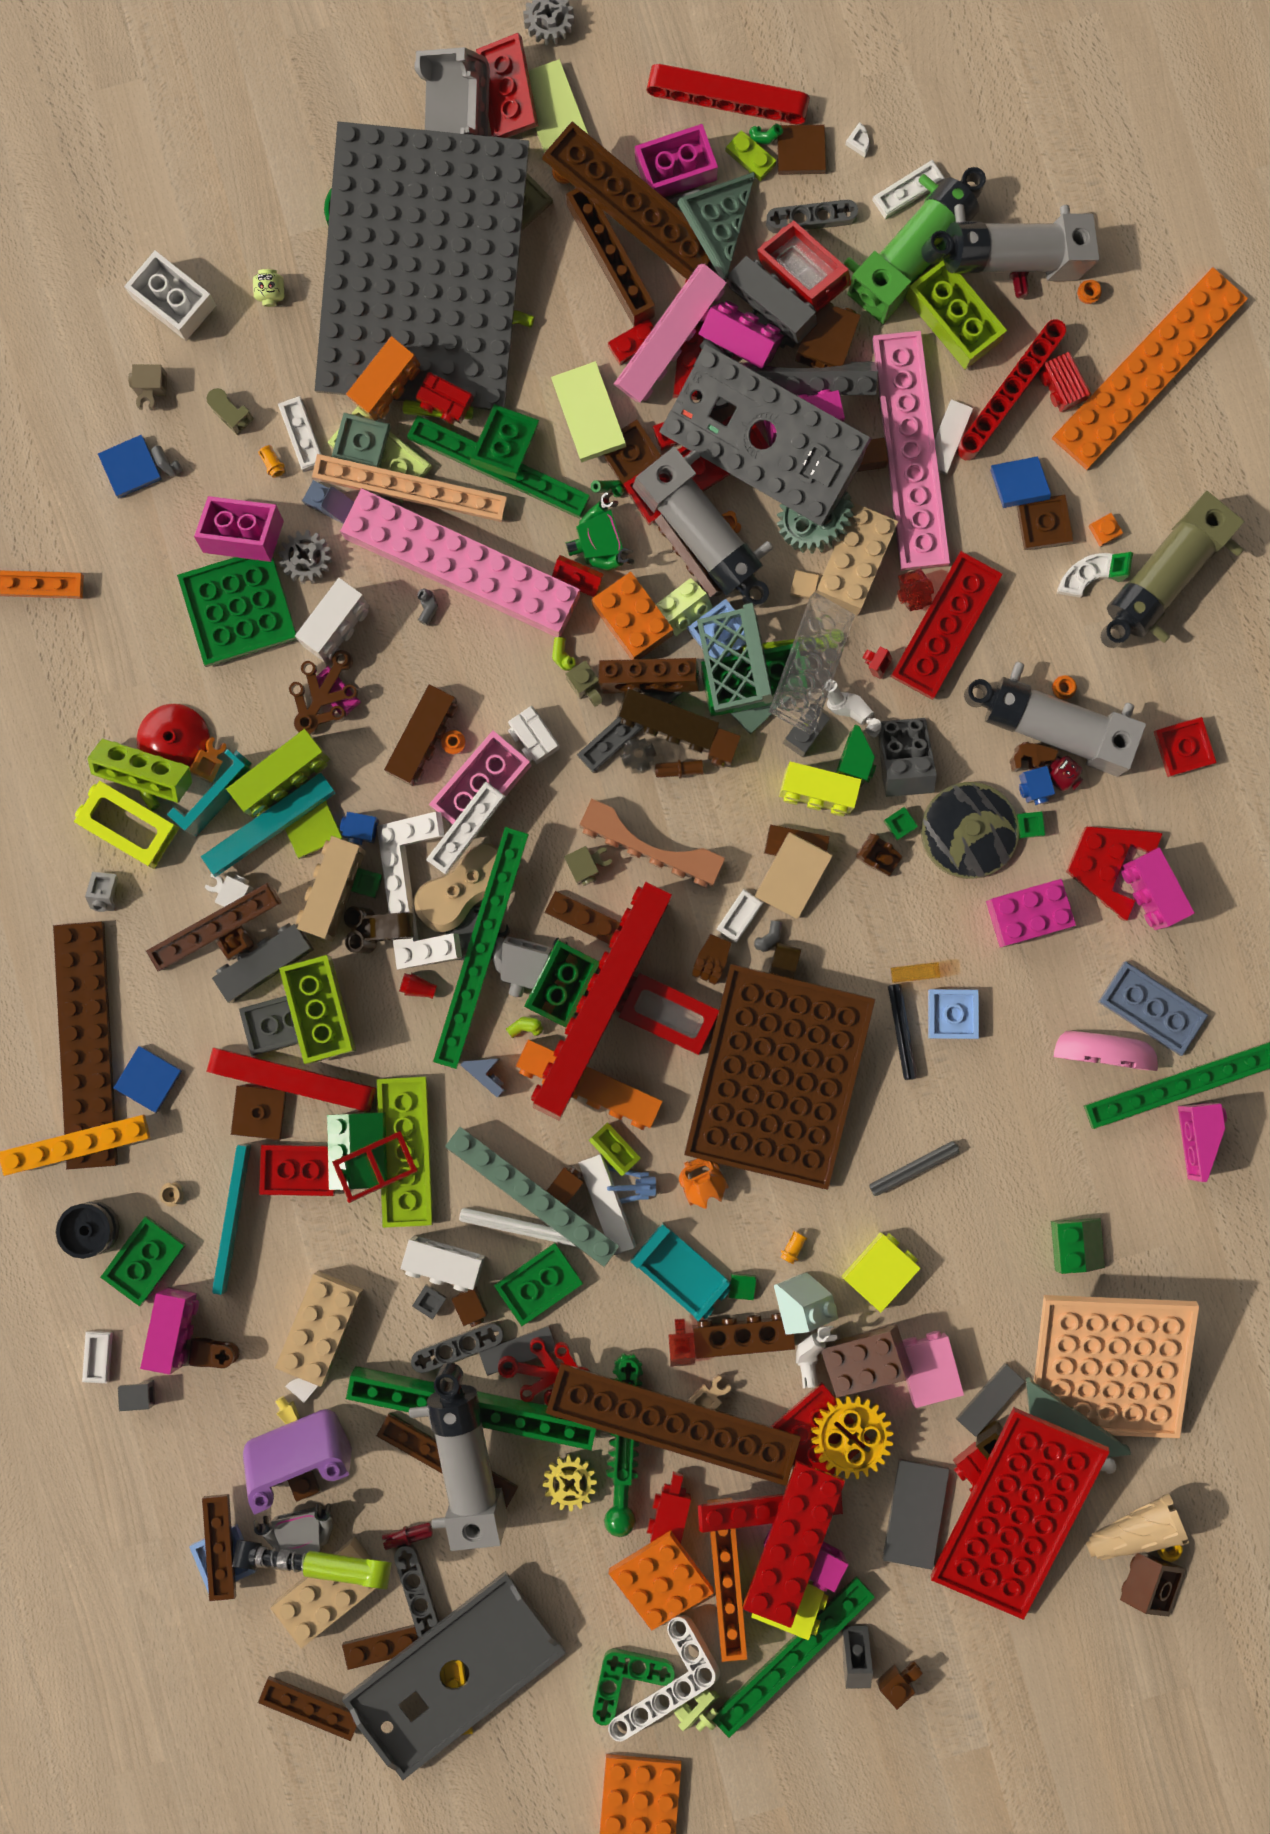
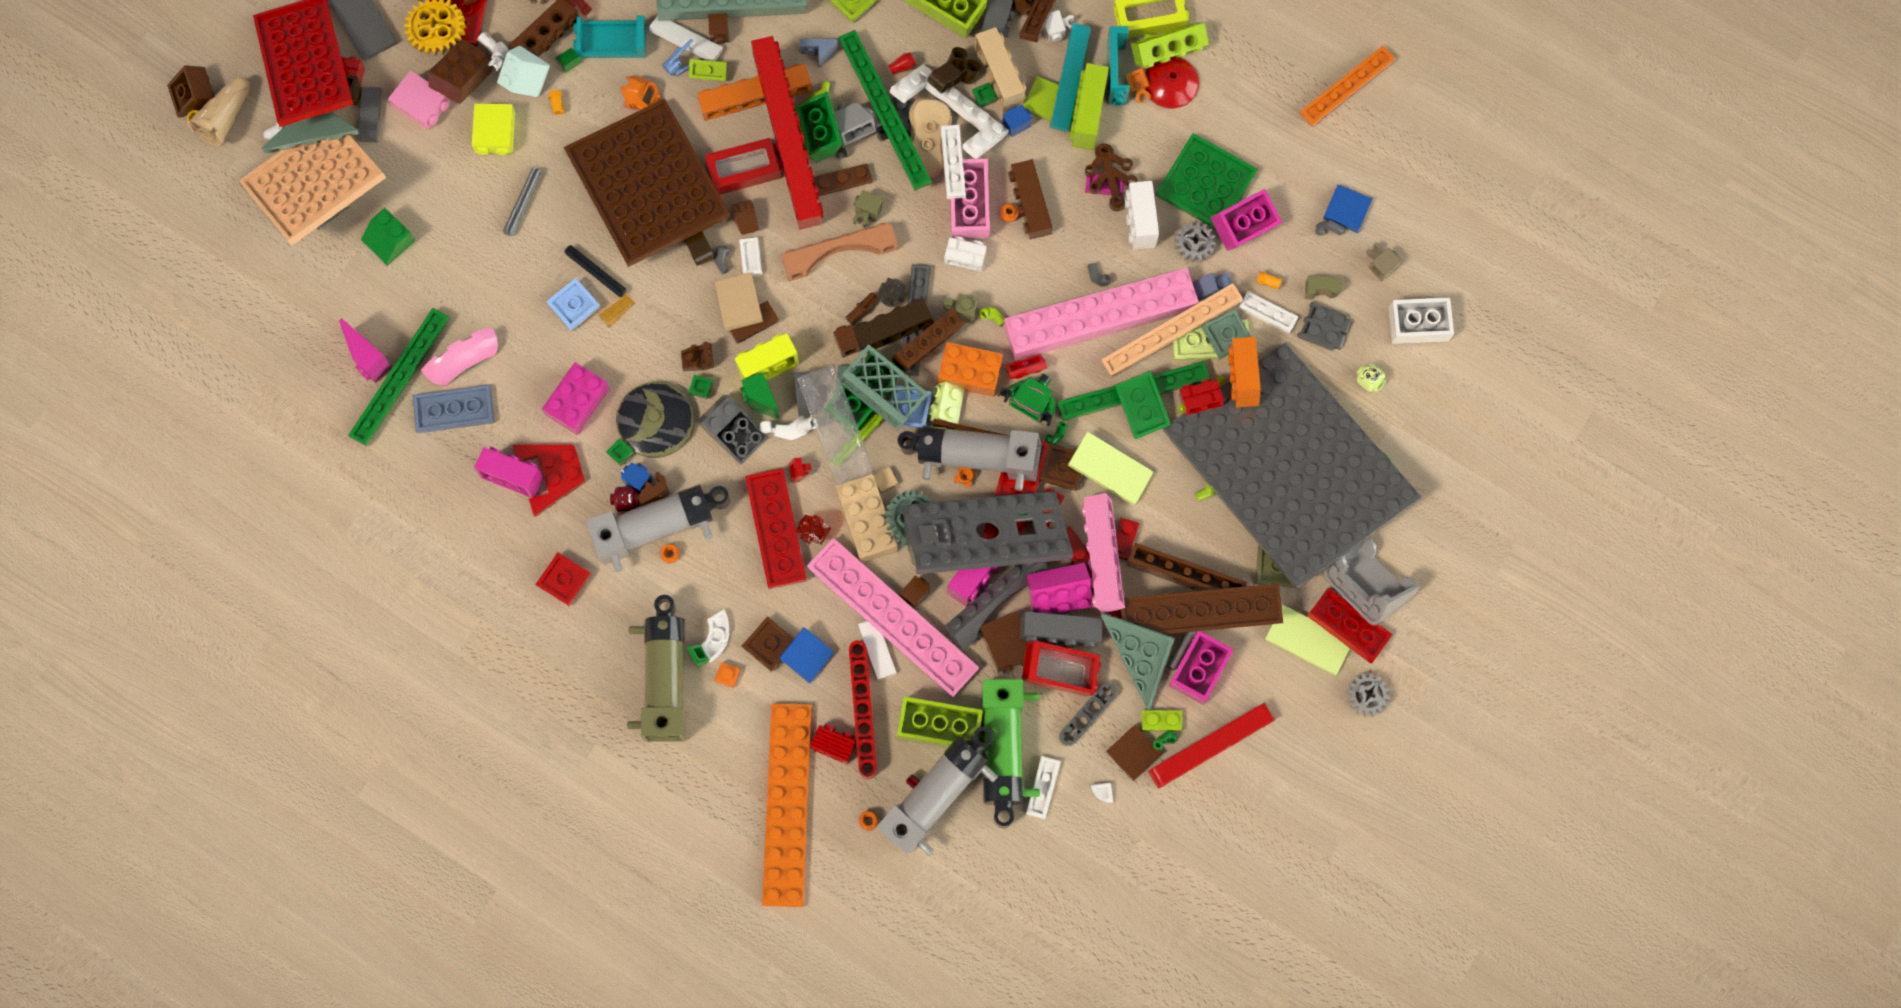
camera: 135 degrees right, 10 degrees down
(262, 373) = (1325, 327): none -> dark grey plate

